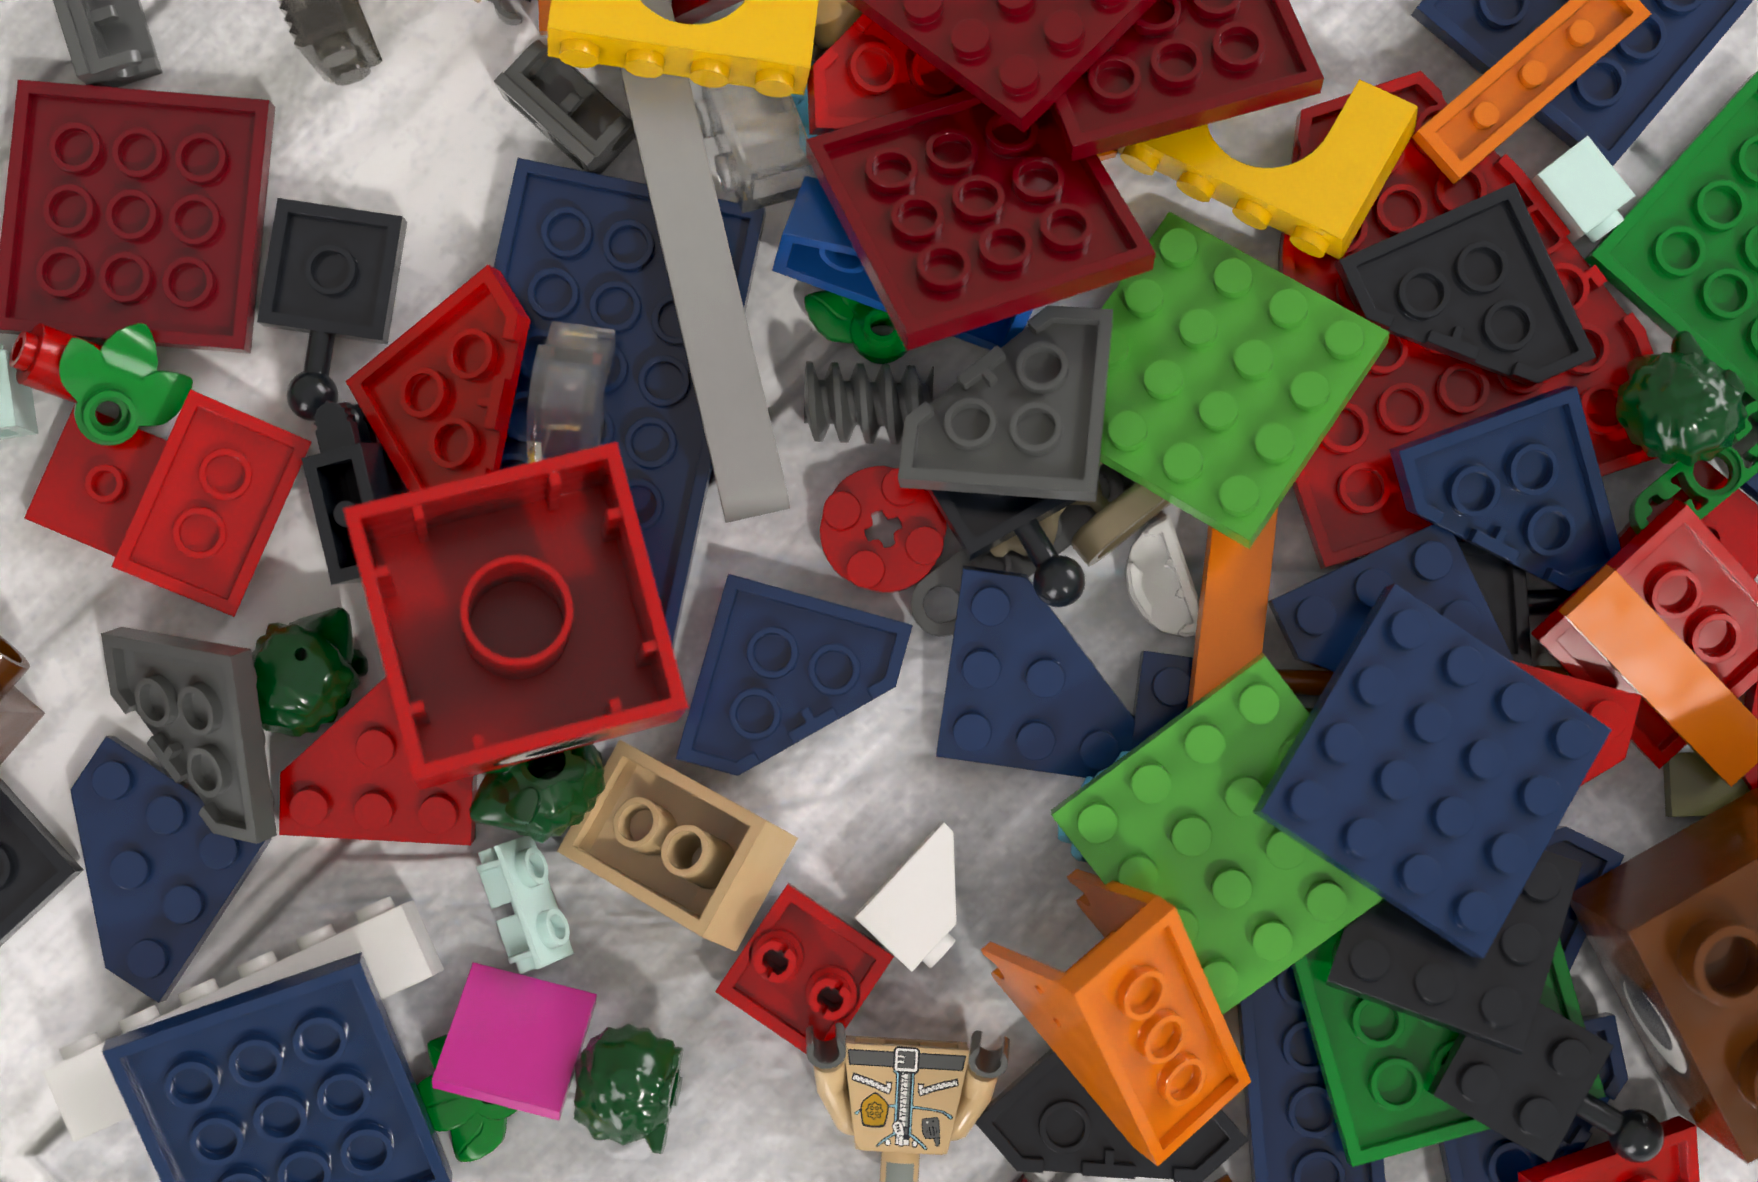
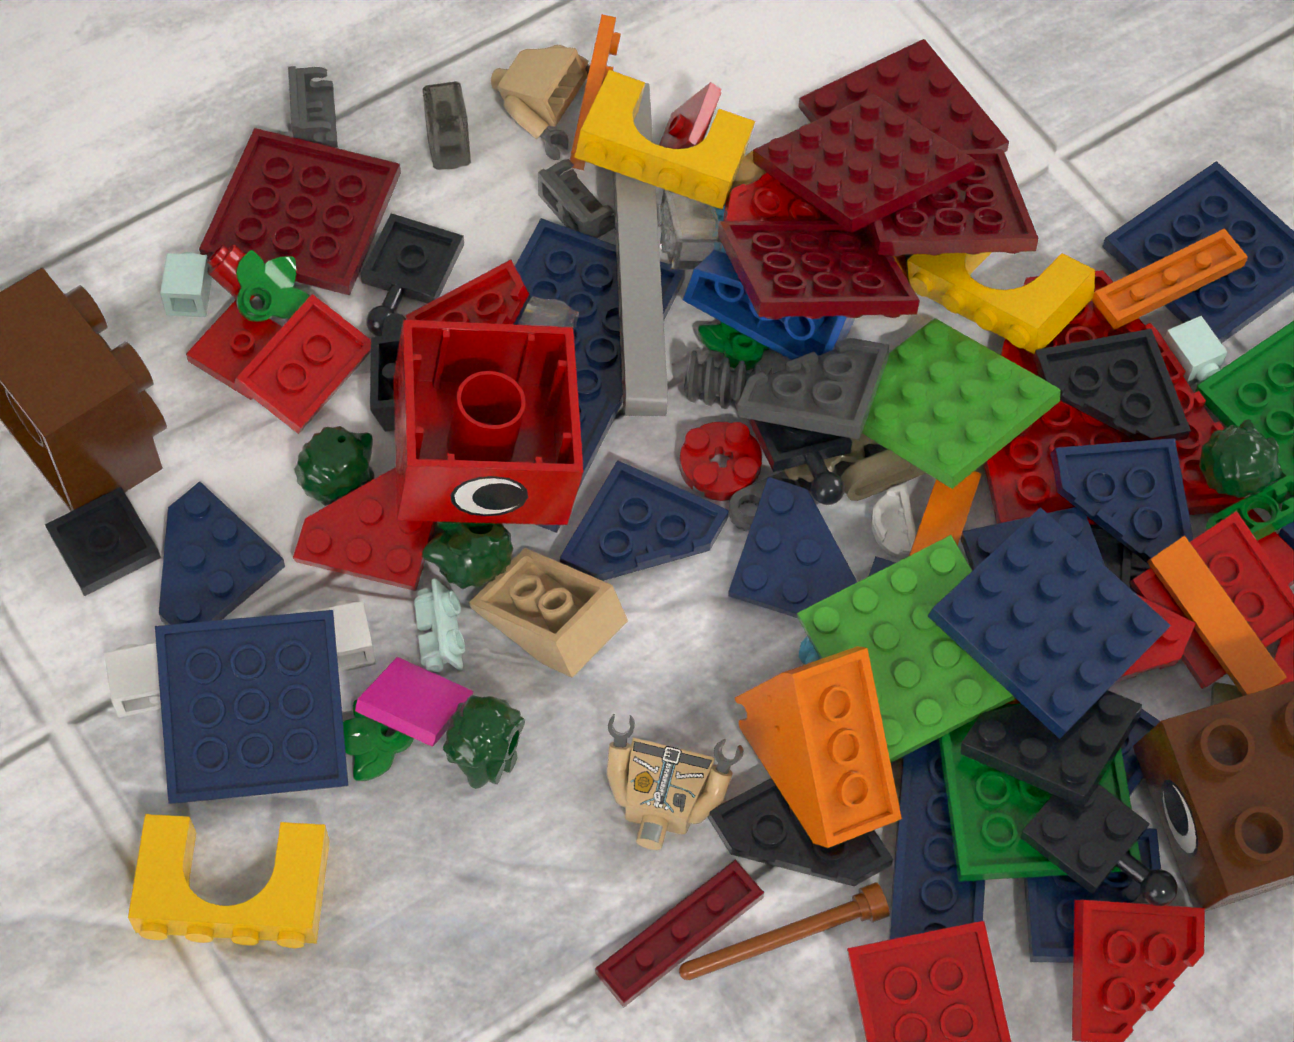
camera: 10 degrees right, 25 degrees down
(202, 720) = (264, 473): dark grey plate -> none
(804, 970) = (610, 687): red plate -> none
(917, 903) = (696, 672): white slope -> none

